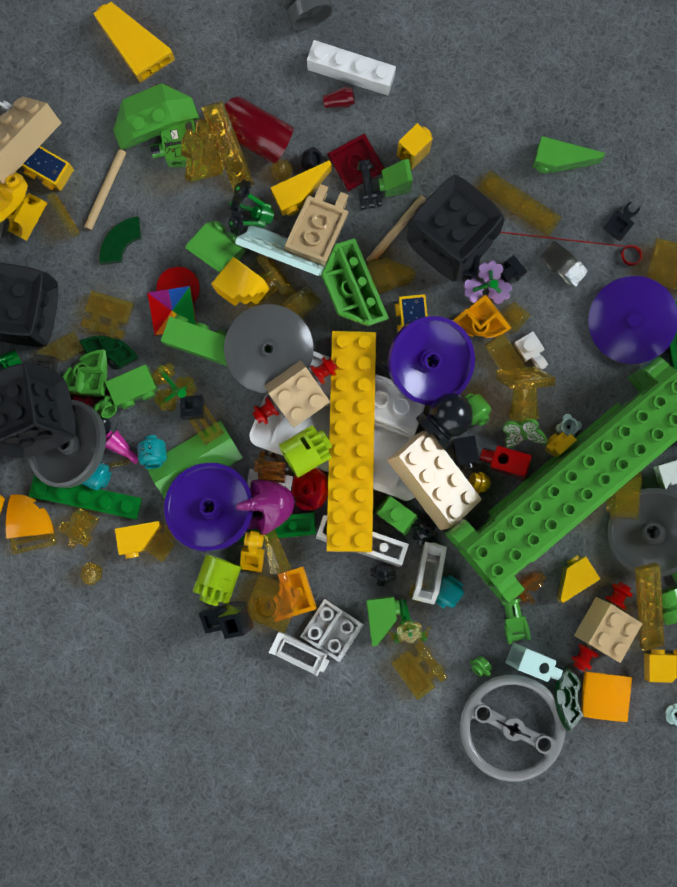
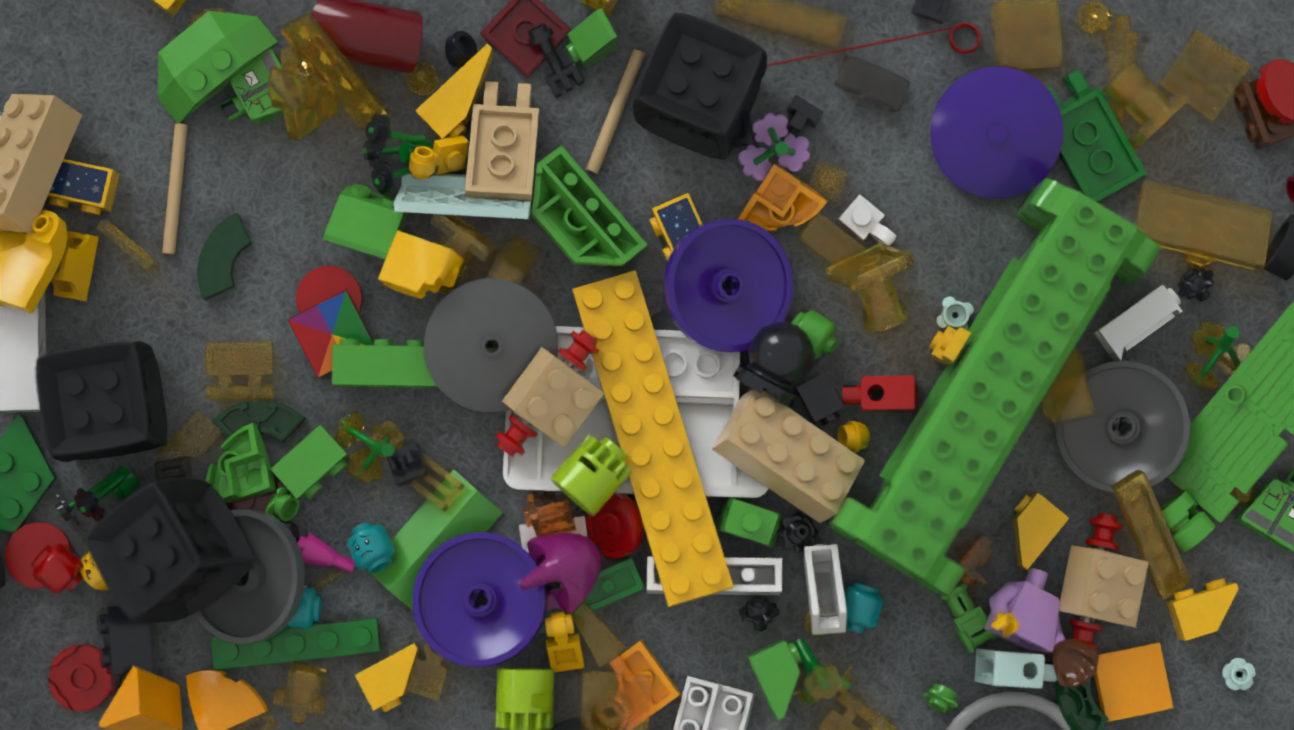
camera: 20 degrees left, 0 degrees up
(280, 223) = (447, 156): none -> yellow plate
(389, 274) = (627, 180): clear yellow slope -> none
(521, 431) = (890, 343): bright green animal -> none
(554, 636) = (1032, 621): none -> lavender torso

